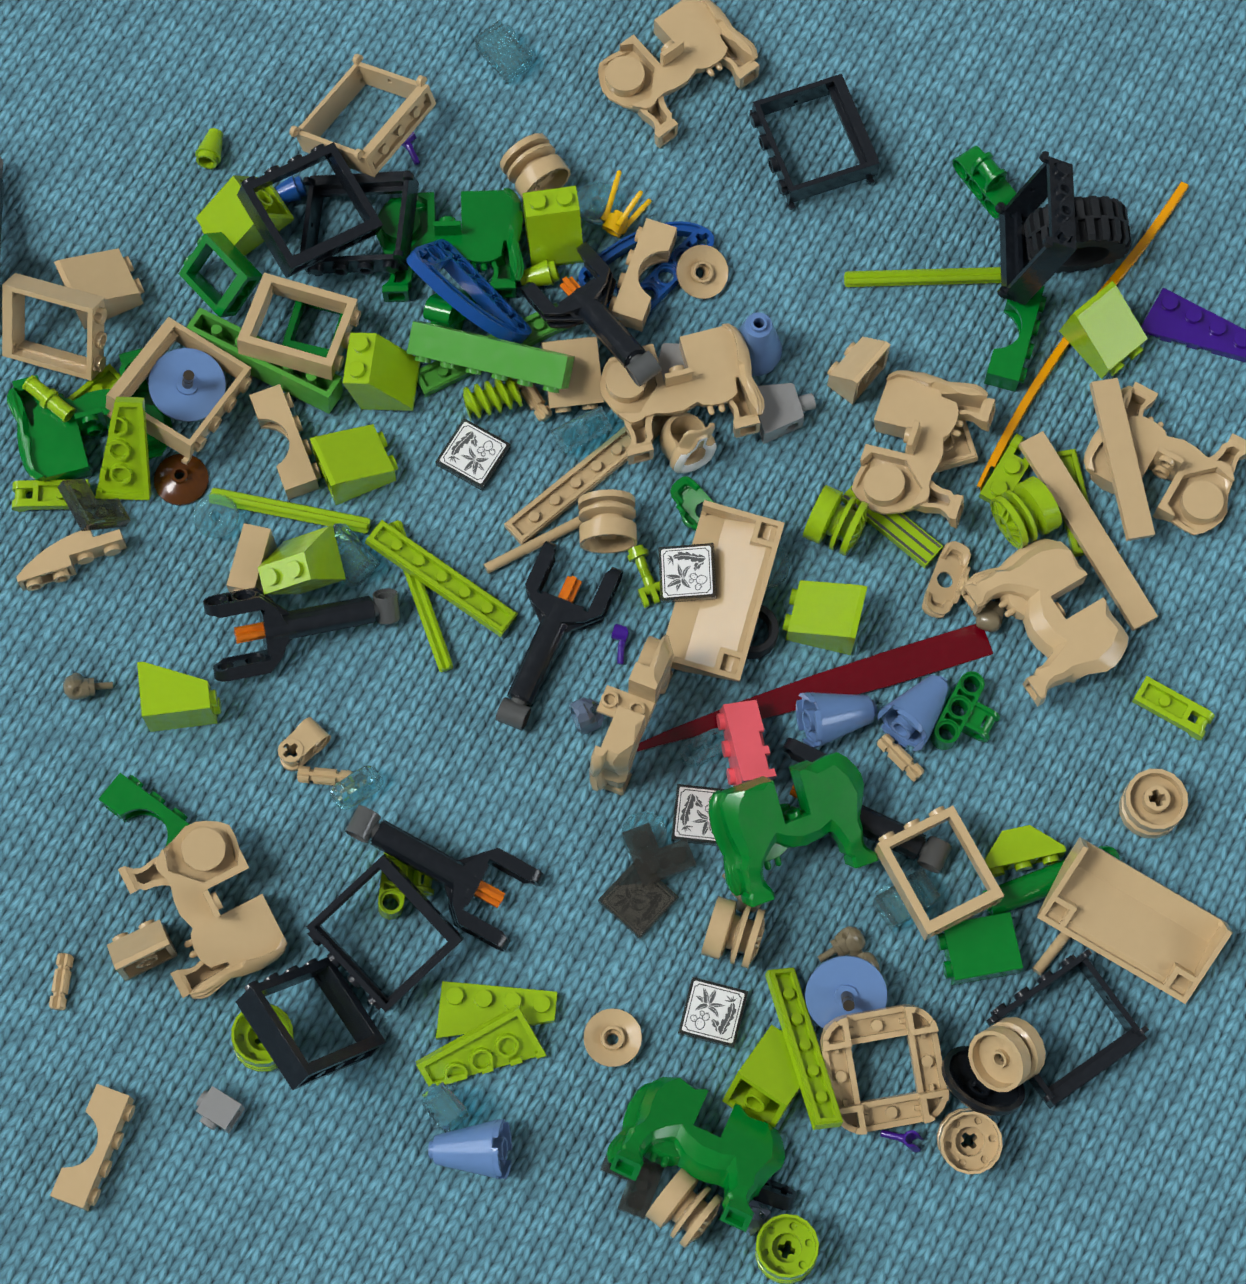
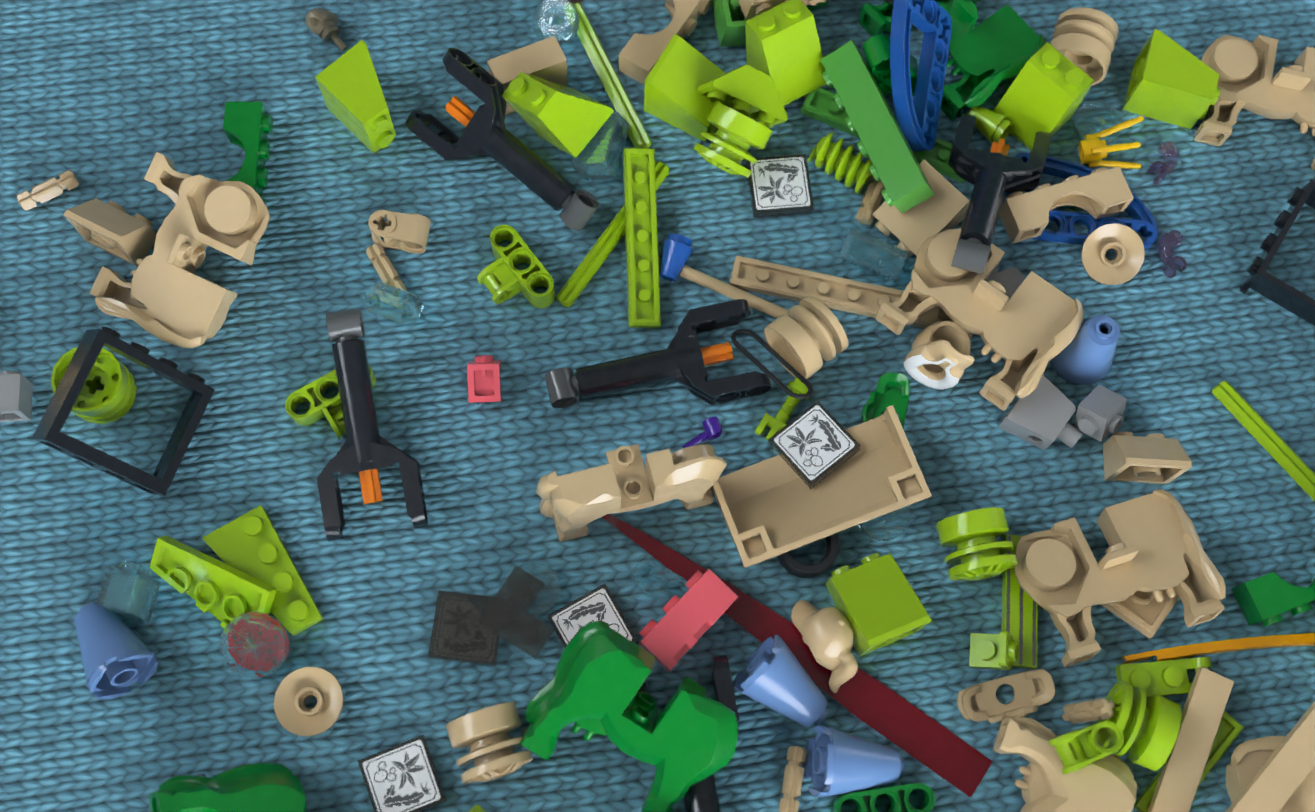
camera: 50 degrees right, 0 degrees up
(357, 975) = (310, 425): black window -> none
(391, 423) = (748, 93): none -> lime slope
(398, 695) = (505, 280): none -> lime piece
(420, 460) = (732, 140): none -> lime wheel
(465, 762) = (484, 379): none -> coral bracket
(472, 565) = (675, 255): none -> blue cone
(545, 1048) = (254, 645): none -> clear light blue tile
(585, 715) = (604, 442): sand blue rock -> none
(608, 133) = (1170, 83): none -> lime slope
(641, 545) = (765, 370): none -> black piece
(662, 176) = (1170, 159): none -> arm
(722, 231) = (1165, 247): none -> clear purple arm
(808, 370) = (1100, 413): none -> light grey brick
(826, 662) = (829, 639): none -> tan hair
(912, 565) = (992, 651): none -> lime bracket
(990, 617) = (1003, 767): dark tan piece -> none
(994, 535) = (1088, 710): none -> tan axle
(1015, 556) = (1080, 746): none -> lime piece

